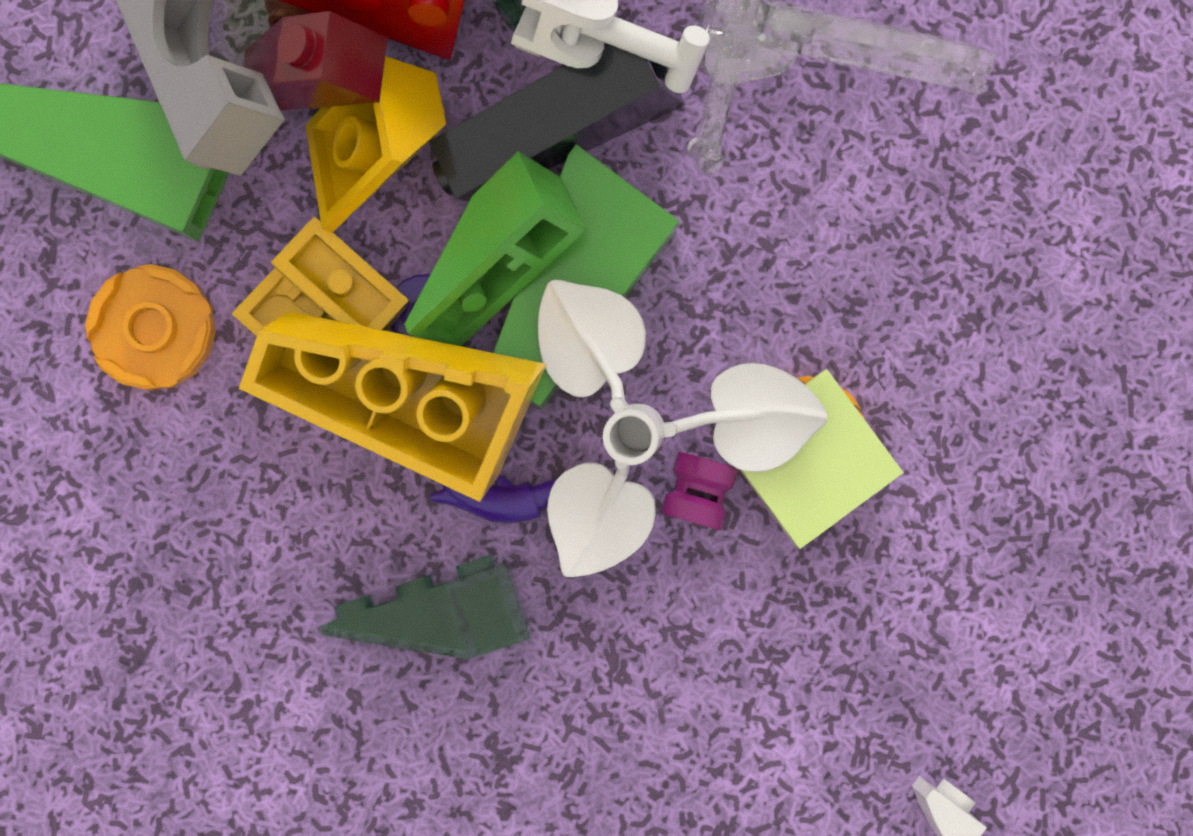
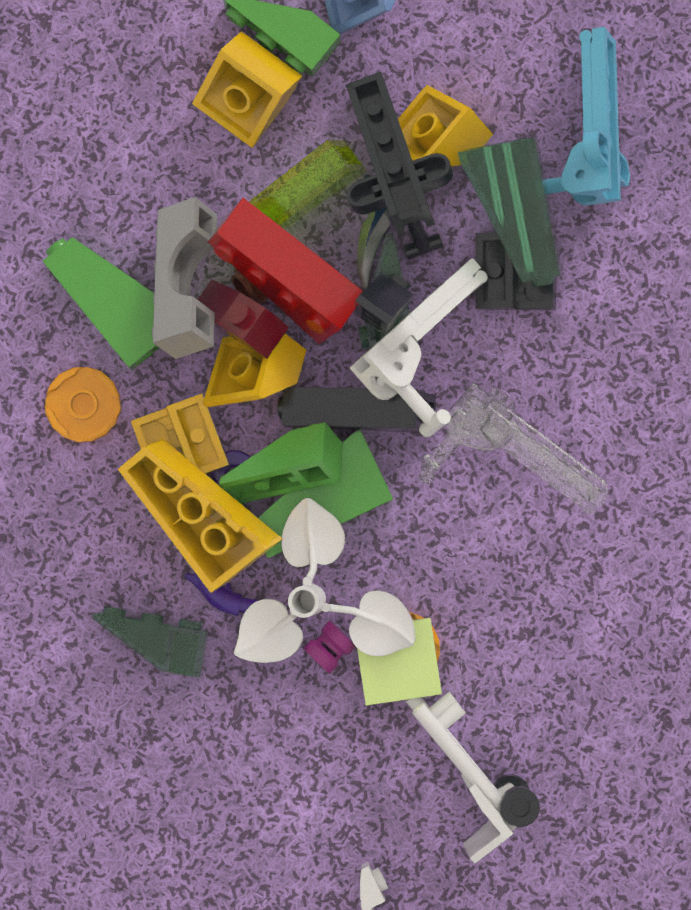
camera: 30 degrees right, 0 degrees up
(1074, 578) = (505, 803): none -> white hand

